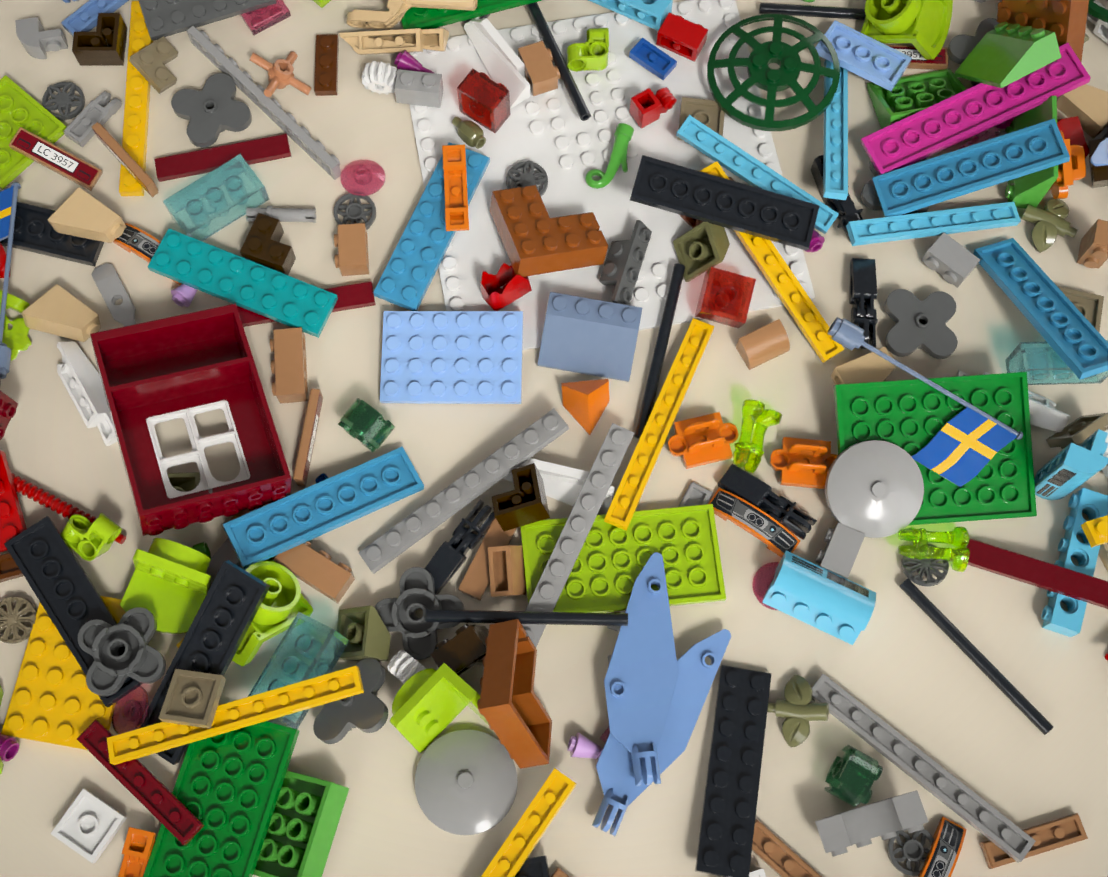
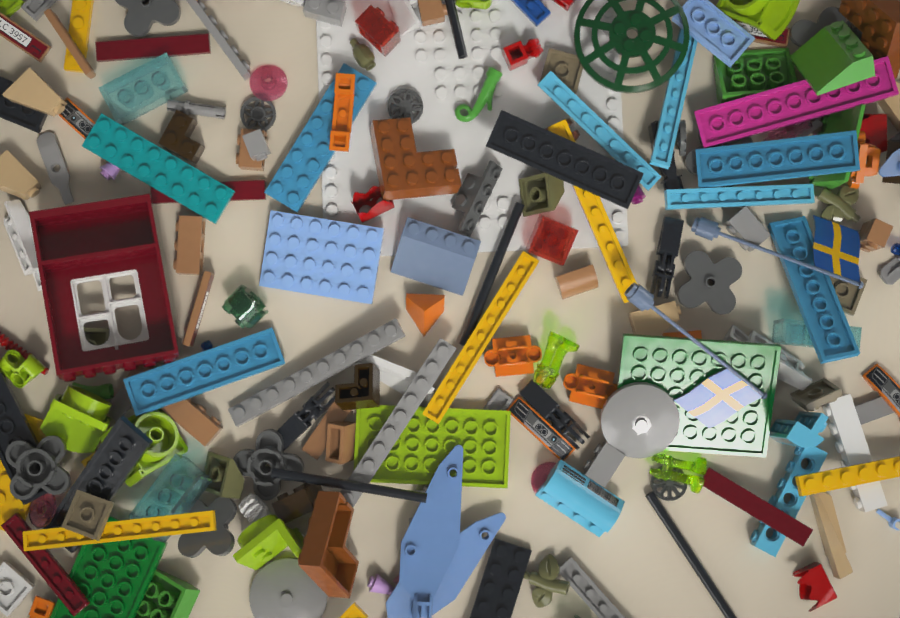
camera: 10 degrees right, 15 degrees up
(358, 236) = (256, 145): none -> light grey brick
(854, 172) = (681, 138): none -> dark grey wheel
(1054, 262) = (834, 248): none -> flag

